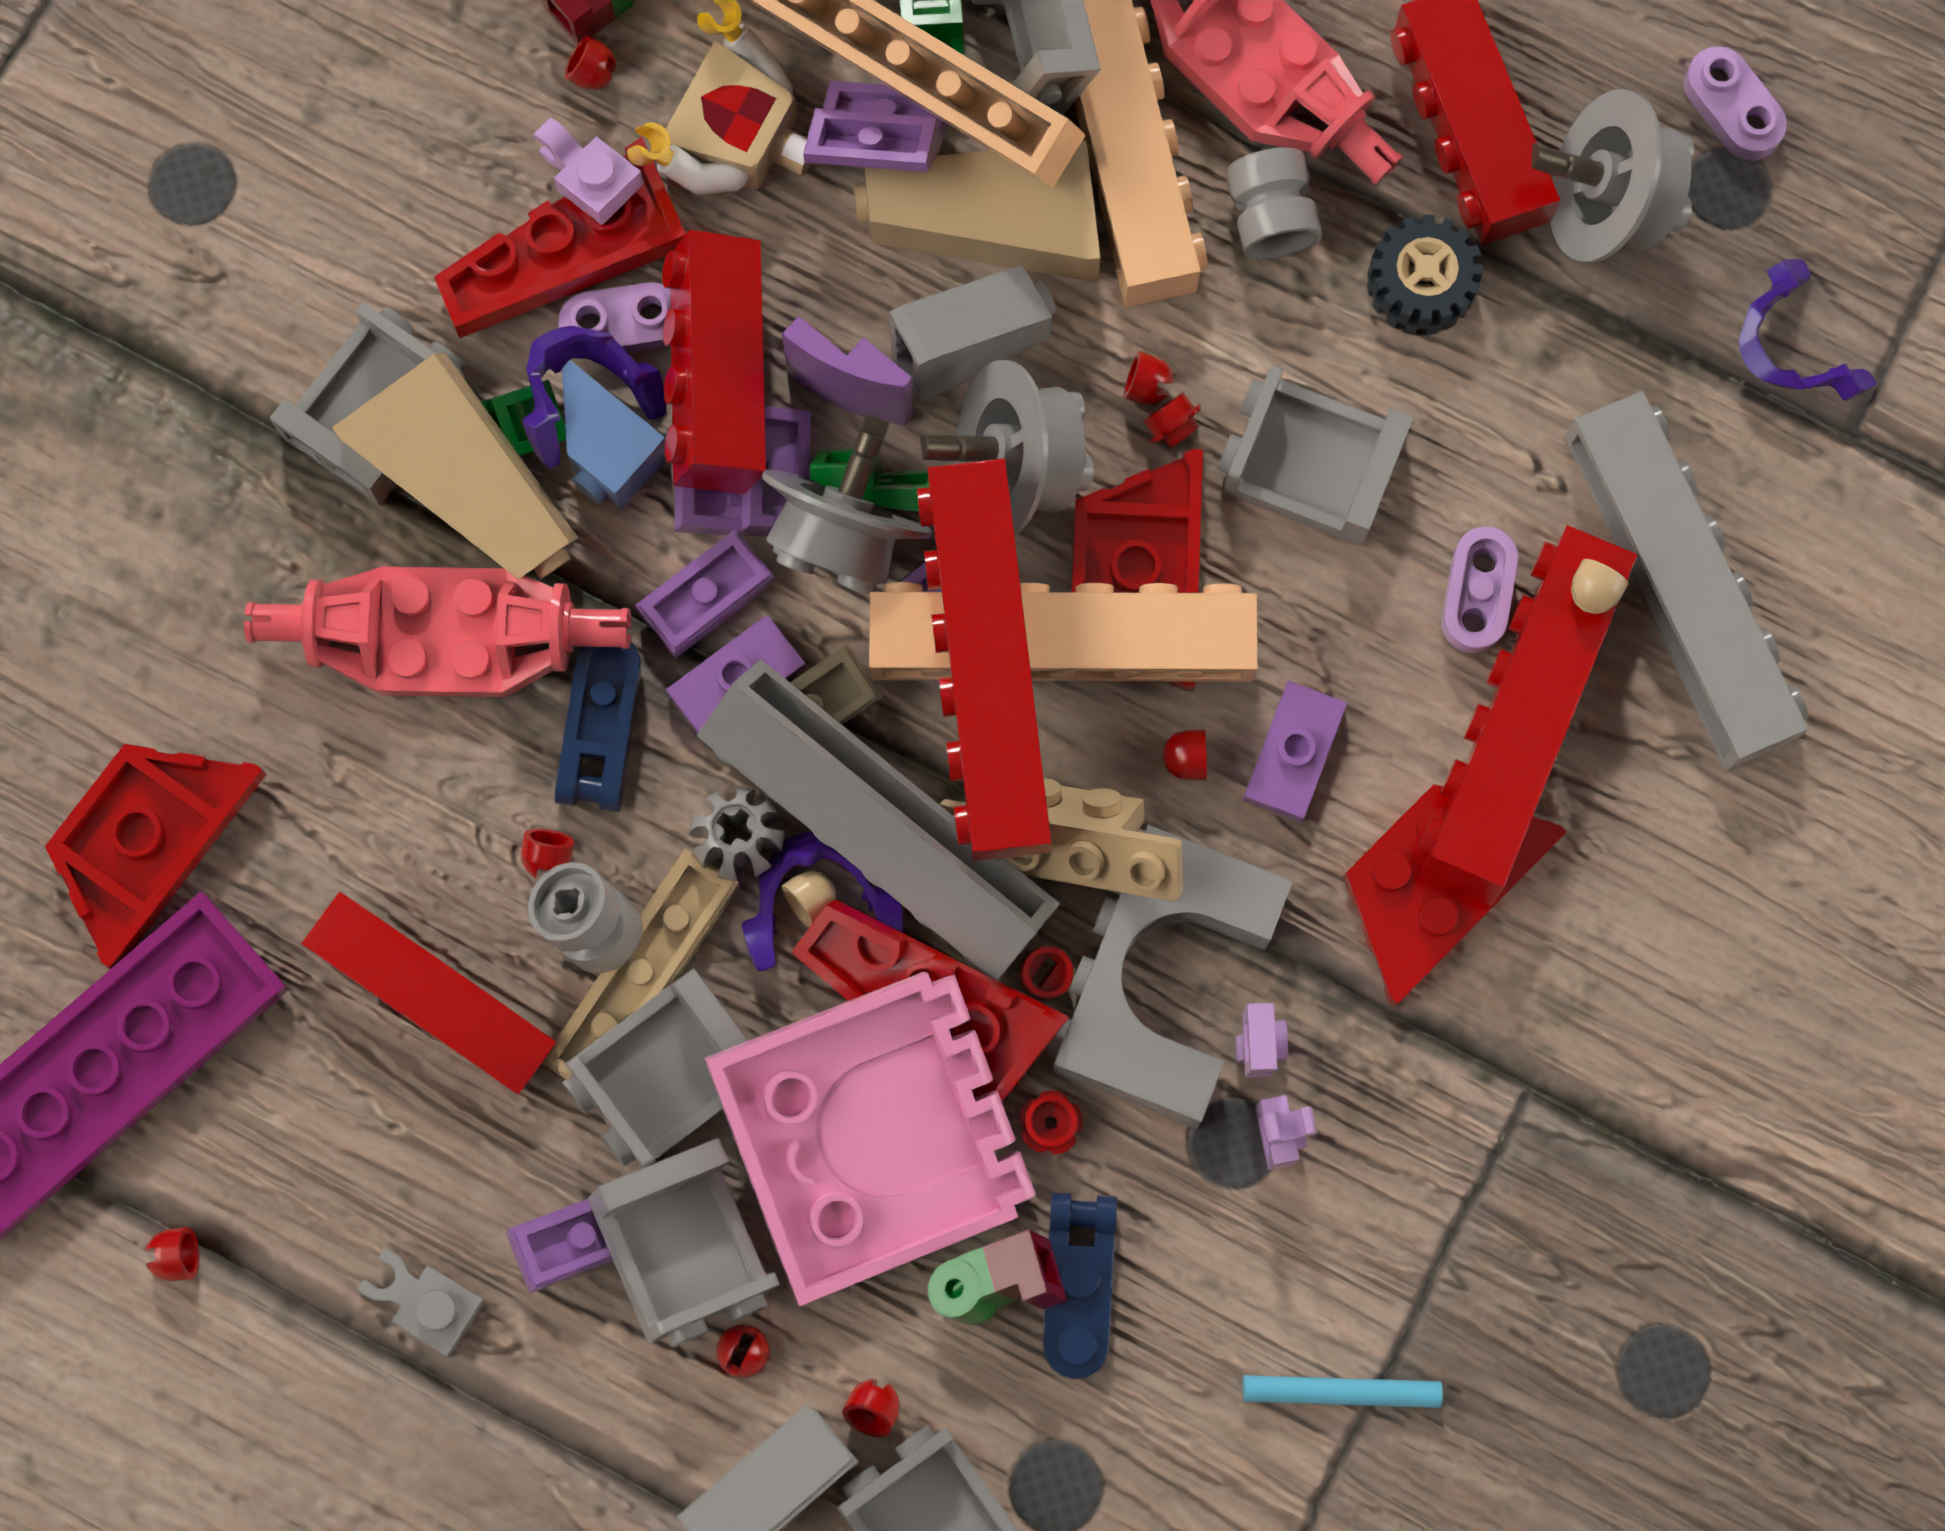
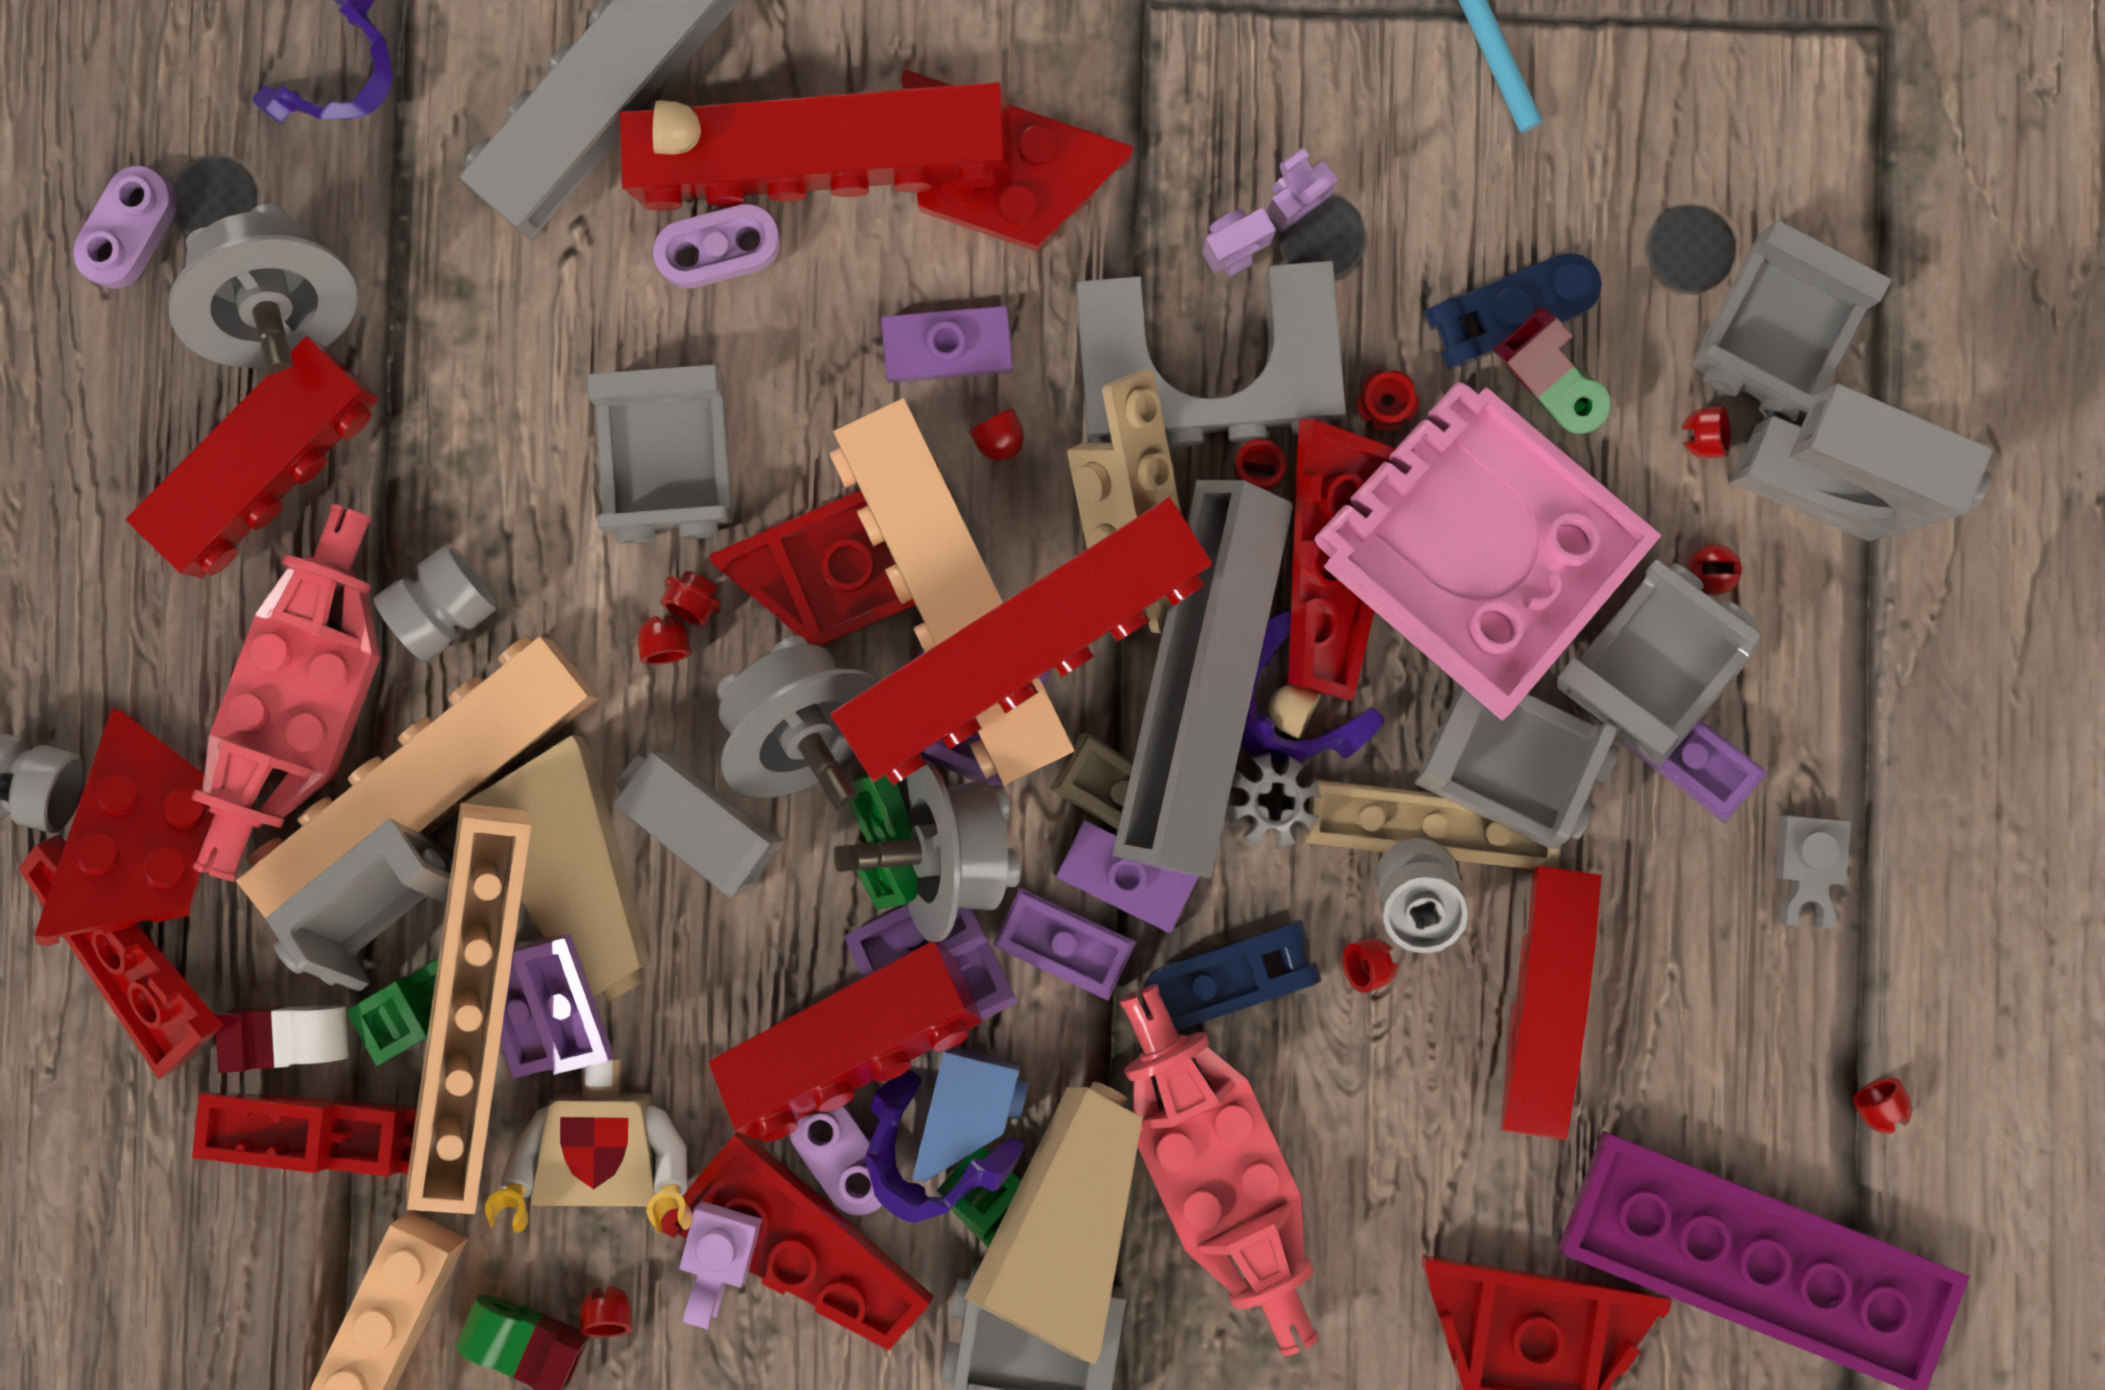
camera: 115 degrees left, 10 degrees up
(855, 382) = (800, 895): medium lavender slope -> none
(1435, 256) = (416, 423): black wheel -> none

